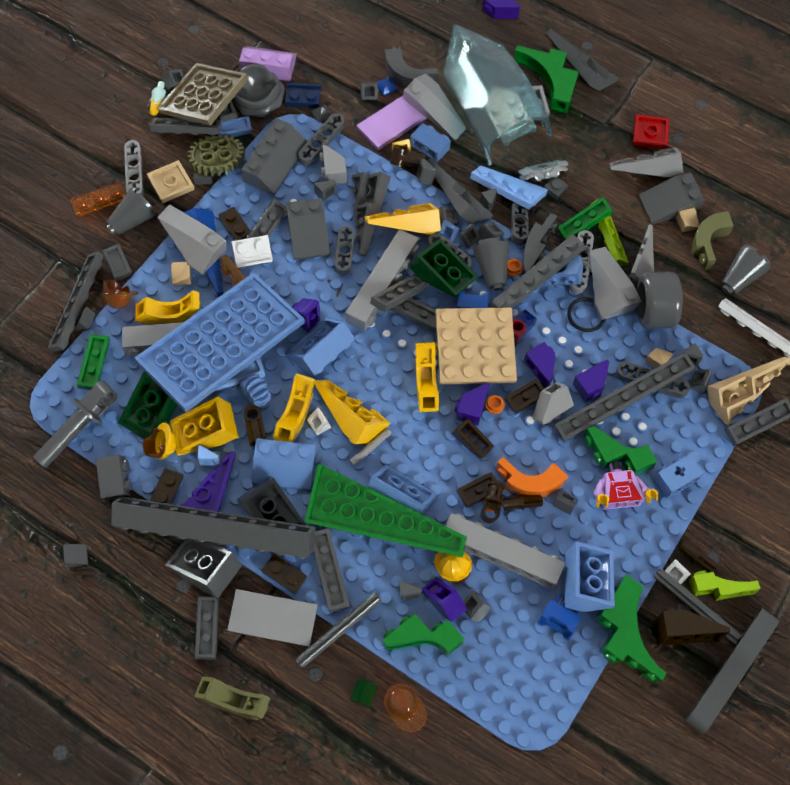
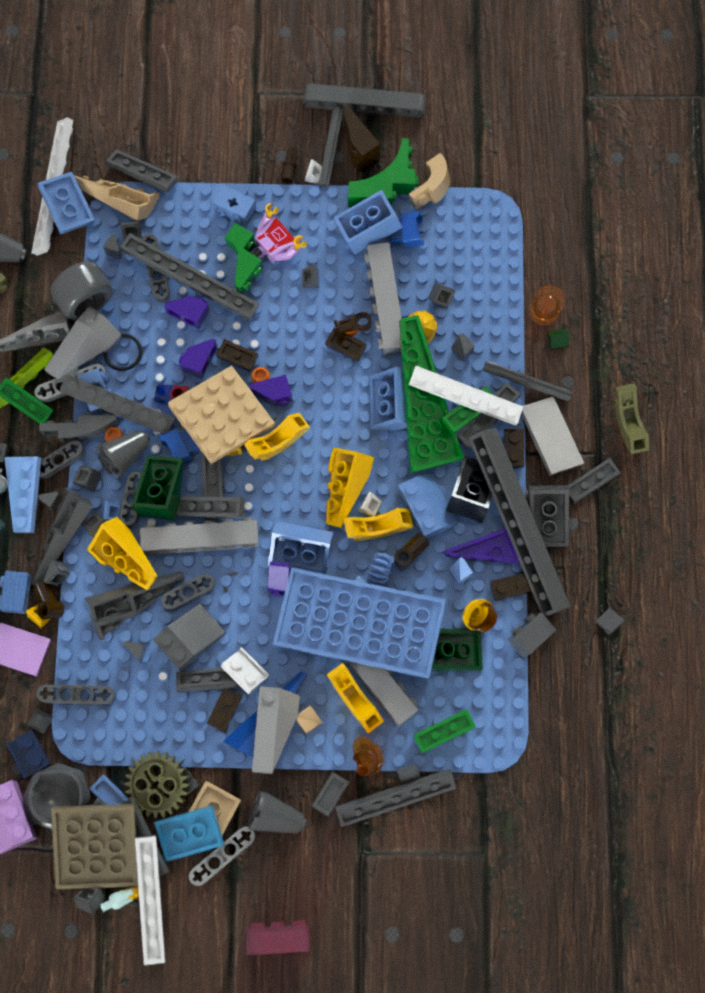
camera: 120 degrees left, 10 degrees up
(44, 165) = (278, 938): none -> clear pink brick
(89, 410) = (495, 696): dark grey piece -> none
(98, 199) = (275, 866): clear orange plate -> none
(140, 106) = (149, 900): none -> white plate
(165, 155) = (189, 833): none -> dark azure tile
(205, 425) = (436, 581): yellow slope -> none
(231, 269) = (281, 663): clear orange plate -> none
(273, 157) = (127, 723): dark grey slope -> none
(334, 166) = (102, 660): light grey slope -> none
(341, 549) = (461, 416): none -> green plate
(355, 550) = (466, 395): none -> white plate
(370, 447) = (364, 450): light grey piece -> none
(414, 633) = (494, 324): green arch -> none
(444, 599) = (452, 319): dark purple slope -> none
(457, 433) = (303, 388): dark brown slope -> none
(470, 235) = (103, 492): dark grey slope -> none
(521, 484) = (310, 299): orange arch -> none
(522, 502) = (333, 305): dark brown axle -> none
(552, 402) = (233, 329): light grey slope -> none
(596, 678) = (435, 186): none -> tan arch
(658, 357) = (131, 271): tan slope -> none
(708, 583) = (309, 146): lime slope -> none
(758, 339) = (66, 202): none -> medium blue plate

